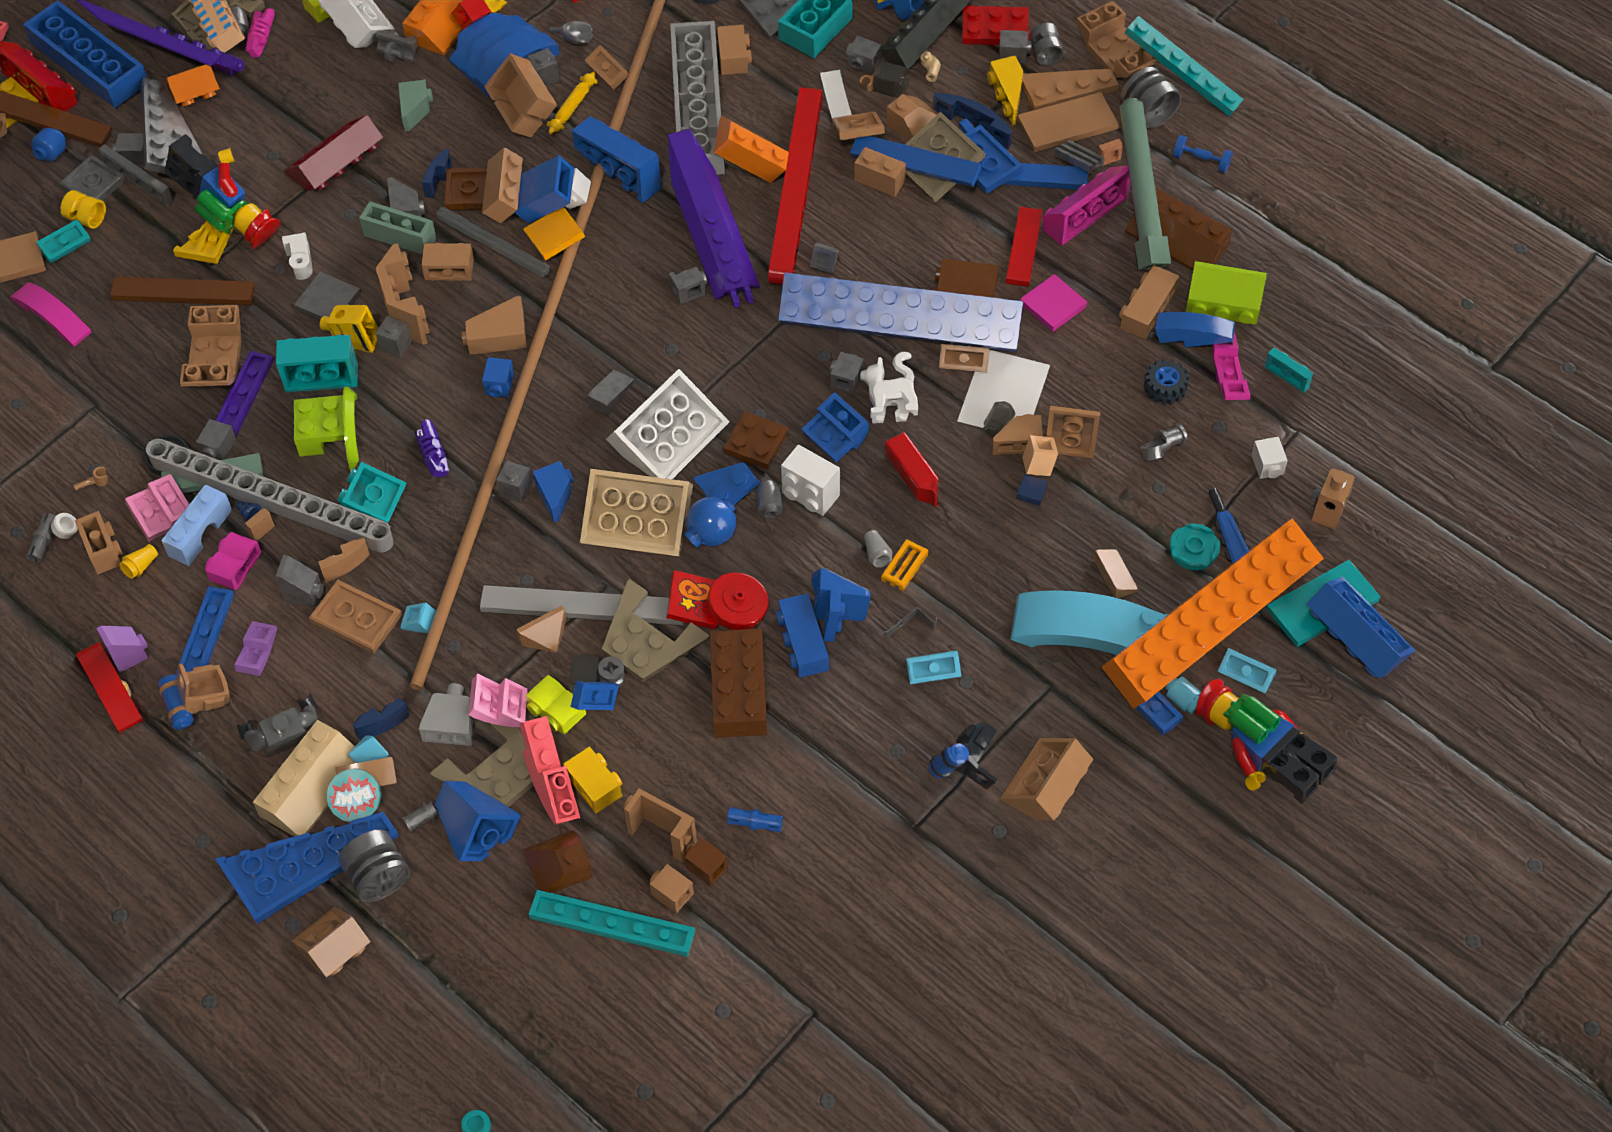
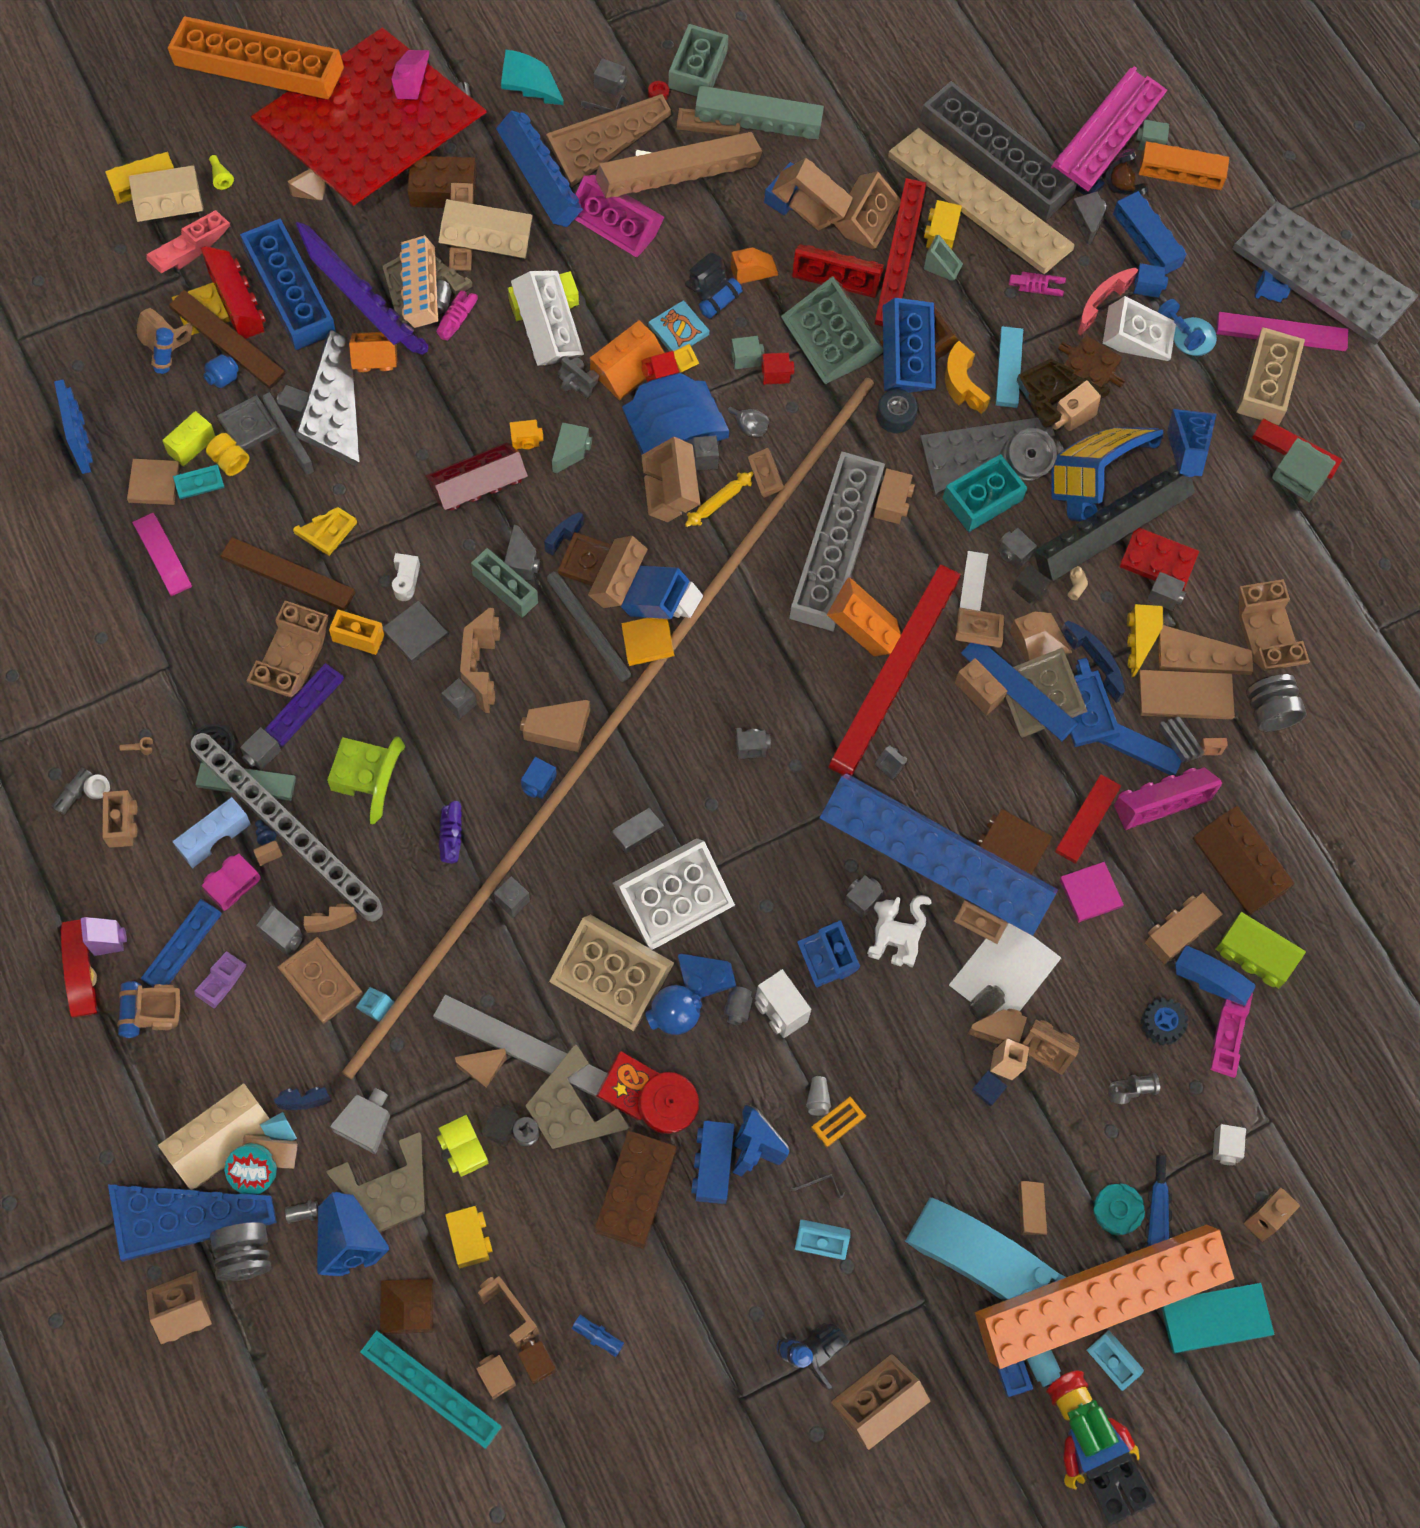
camera: 15 degrees right, 10 degrees up
(39, 208) = (189, 438): none -> neon yellow brick
(135, 563) = (147, 849): yellow cone -> none
(157, 507) = (185, 799): bright pink slope -> none
(217, 193) = (351, 492): piece -> none
(271, 312) = (356, 632): none -> light orange brick
(281, 730) = (212, 1079): dark grey torso -> none
(317, 363) = (378, 703): teal brick -> none
(352, 321) = (424, 675): yellow torso -> none
(367, 104) = (525, 434): none -> light orange brick
(372, 492) = (378, 860): teal plate -> none
(447, 261) = (538, 634): medium nougat brick -> none
(497, 703) = (411, 1124): bright pink slope -> none
(546, 773) = (428, 1216): coral slope -> none
(554, 488) = (546, 917): blue slope -> none
(594, 695) = (498, 1155): blue plate -> none
(619, 157) = (737, 581): blue wedge -> none
(710, 219) = (798, 682): dark purple hinge -> none
(755, 440) = (751, 934): reddish brown plate -> none
(866, 79) = (1008, 575): medium nougat hand -> none
(912, 468) = (885, 1024): red piece -> none
(1046, 44) = (1199, 602): flat silver wheel -> none
(1152, 246) = (1208, 873): sand green brick -> none
(1181, 146) = (1303, 782): blue wheel -> none
(1183, 66) = (1323, 680): teal plate -> none
(1288, 369) = (1292, 1061): teal plate -> none
(1359, 627) = (1240, 1363): blue slope -> none

